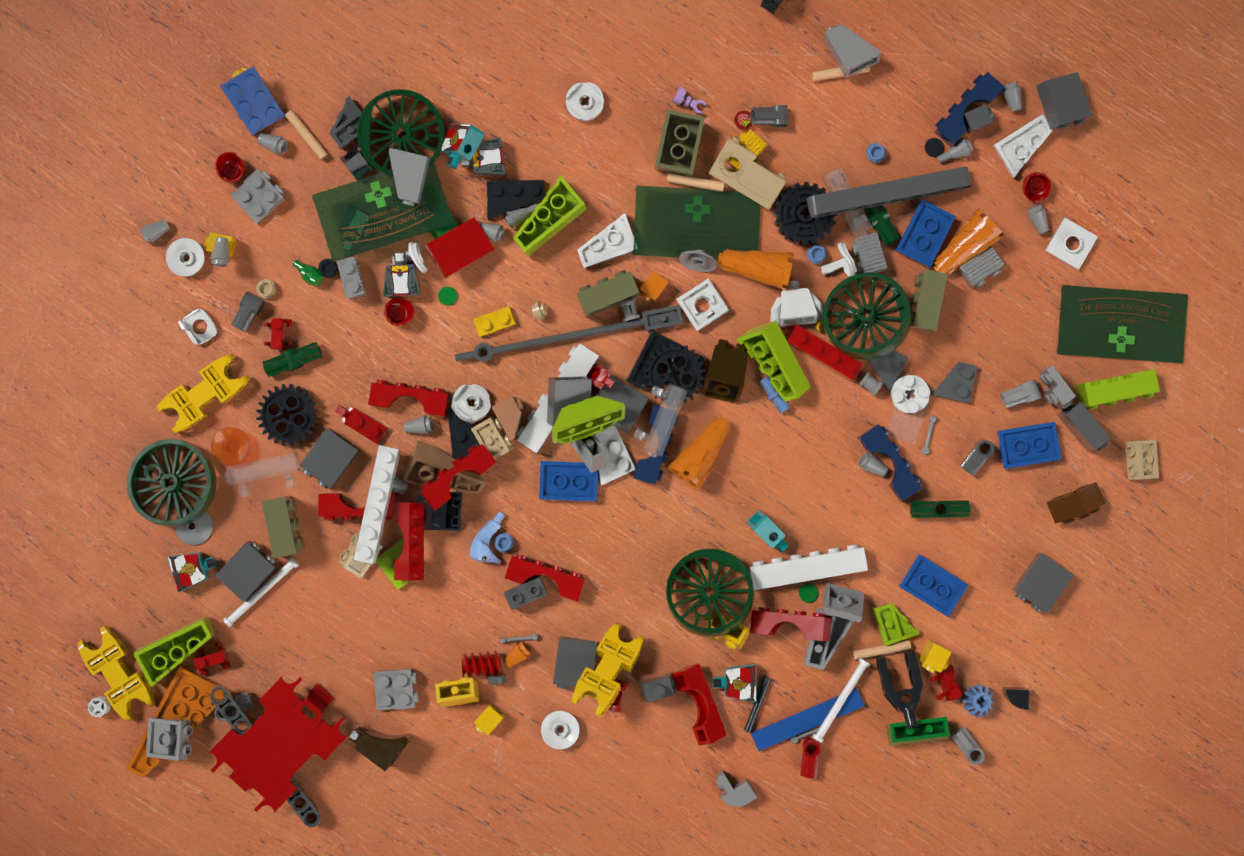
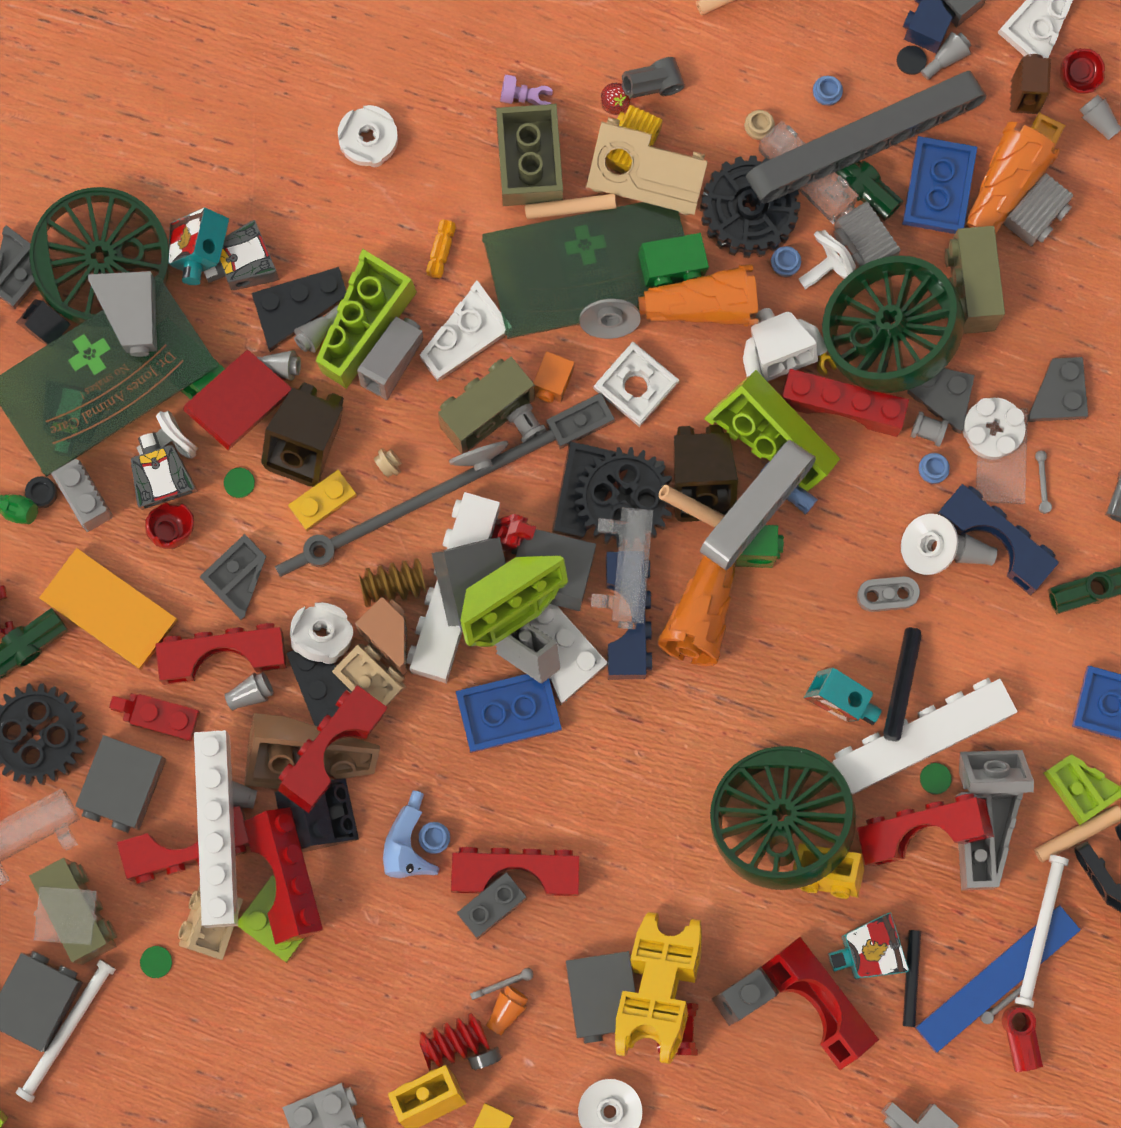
camera: 20 degrees left, 10 degrees down
(276, 531) = (65, 915): none -> clear piece
(323, 567) = (156, 962): none -> green piece
(349, 351) = (108, 609): none -> light orange piece
(430, 352) = (236, 575): none -> dark grey wing
(493, 279) = (302, 435): none -> dark brown hips
(521, 385) = (392, 582): none -> pearl gold piece
(559, 246) = (390, 357): none -> light grey slope
(595, 325) = (479, 457): none -> light grey dish
(609, 186) = (440, 249): none -> light orange axle
(716, 395) = (690, 505): none -> light nougat piece
(745, 427) = (763, 549): none -> green brick
(747, 235) = (673, 260): none -> green brick
(750, 405) = (757, 504): none -> light grey beam
(805, 533) = (902, 684): none -> black axle
(814, 476) = (887, 595): none -> light grey plate
(827, 162) = (758, 124): none -> tan plate
(841, 451) = (918, 540): none -> white dish
(866, 408) = (933, 468): none -> medium blue plate
(1001, 187) = (1030, 84): none -> reddish brown brick
(1001, 217) = (1048, 127): none -> light orange tile

